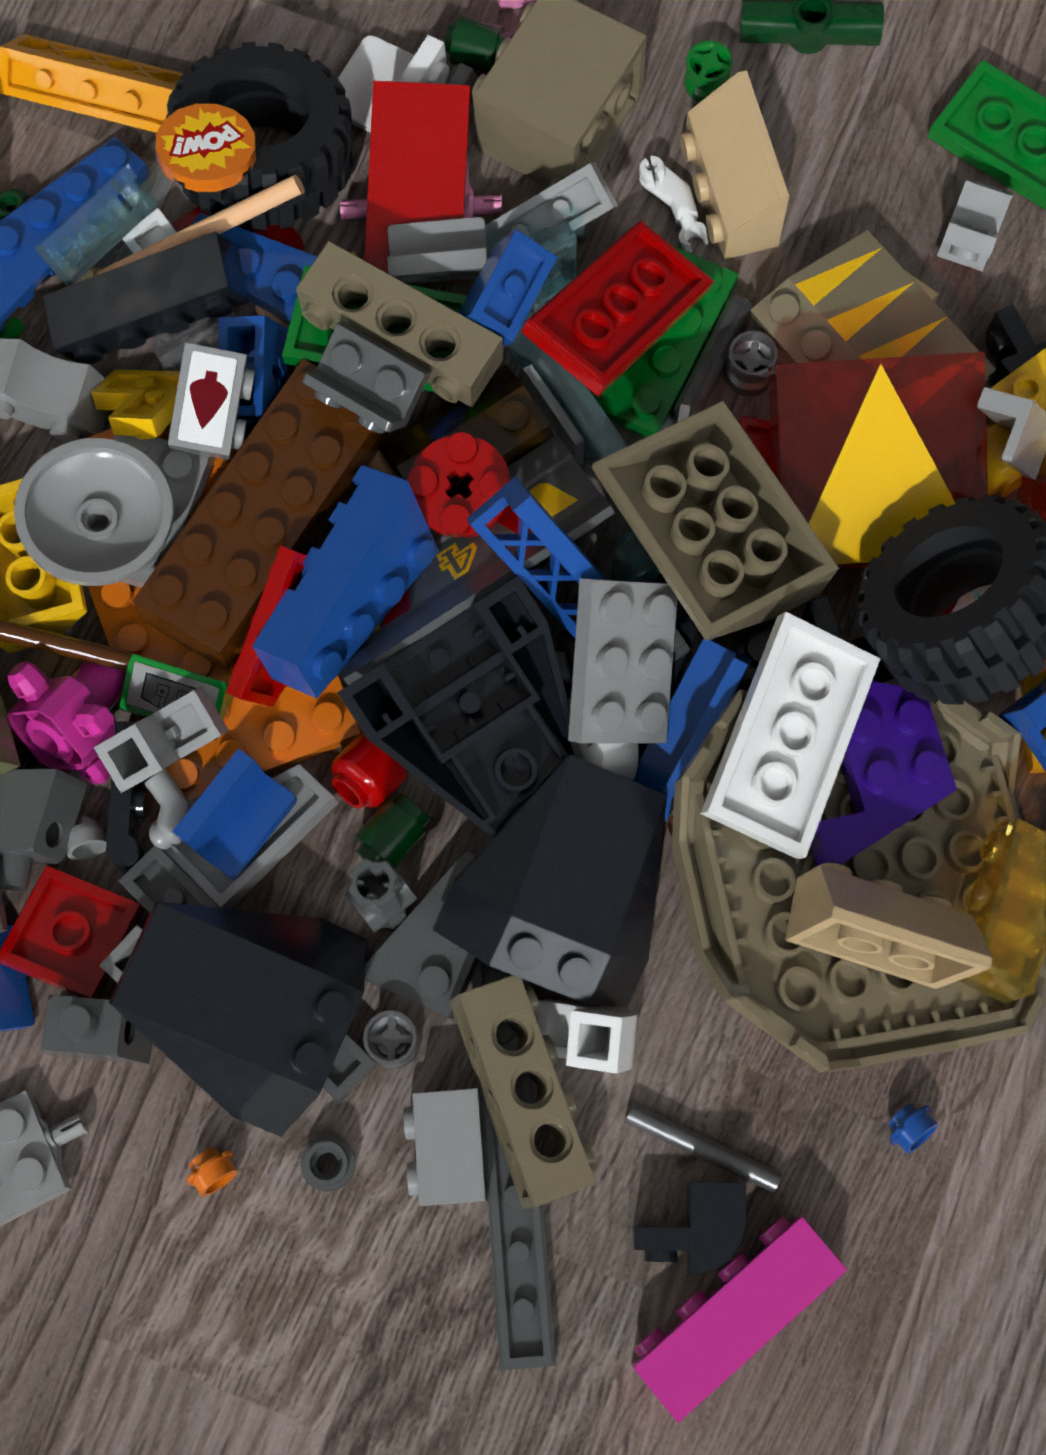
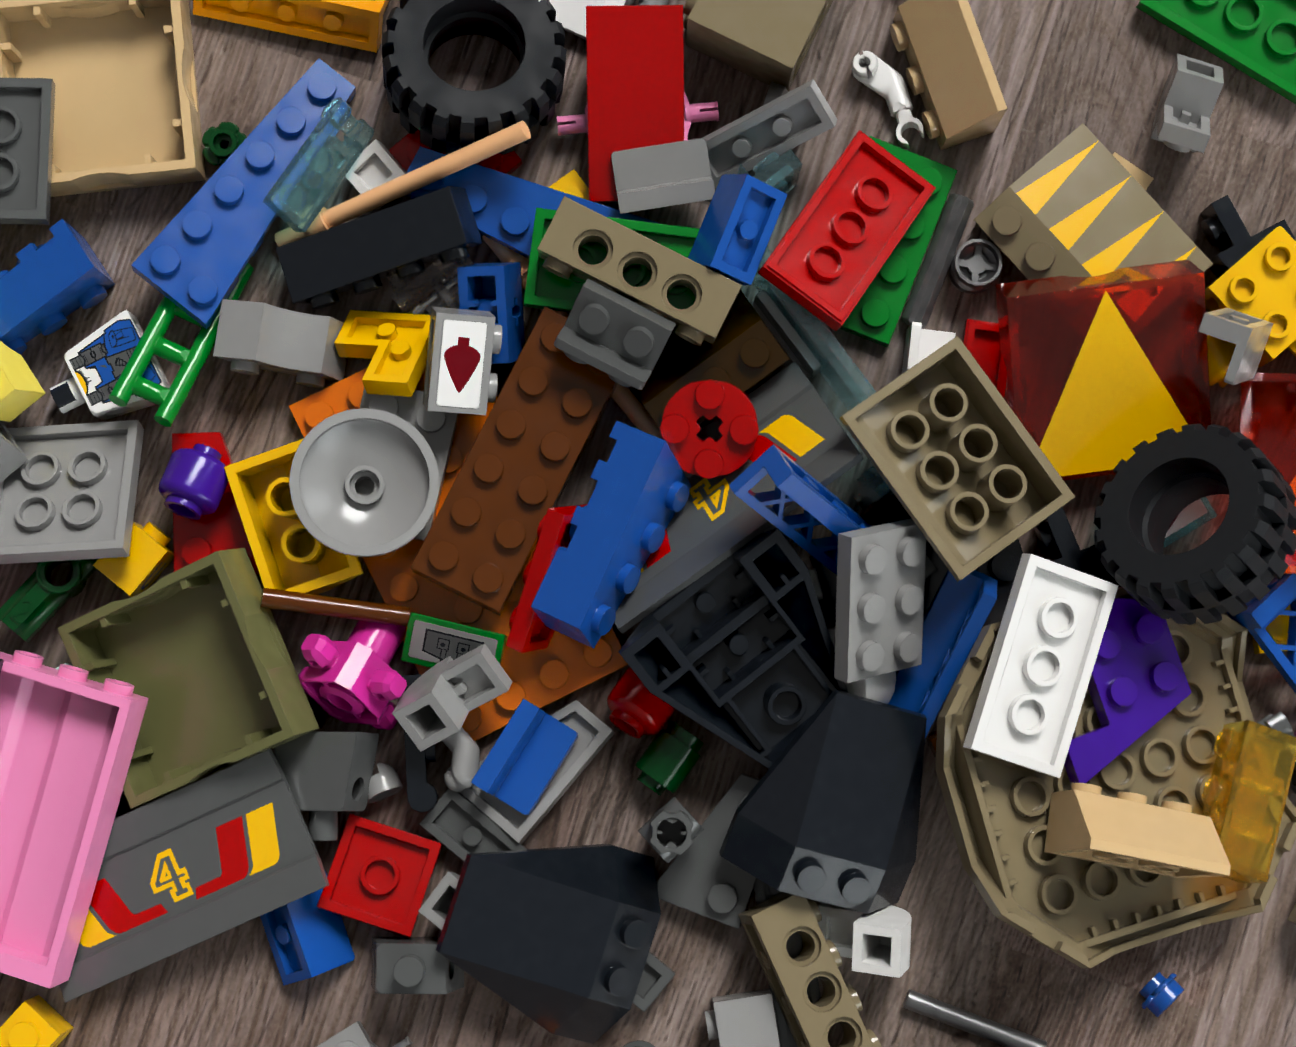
camera: 10 degrees left, 10 degrees up
(205, 147) = (431, 100): tile -> none
(384, 1036) = (687, 959): flat silver wheel -> none

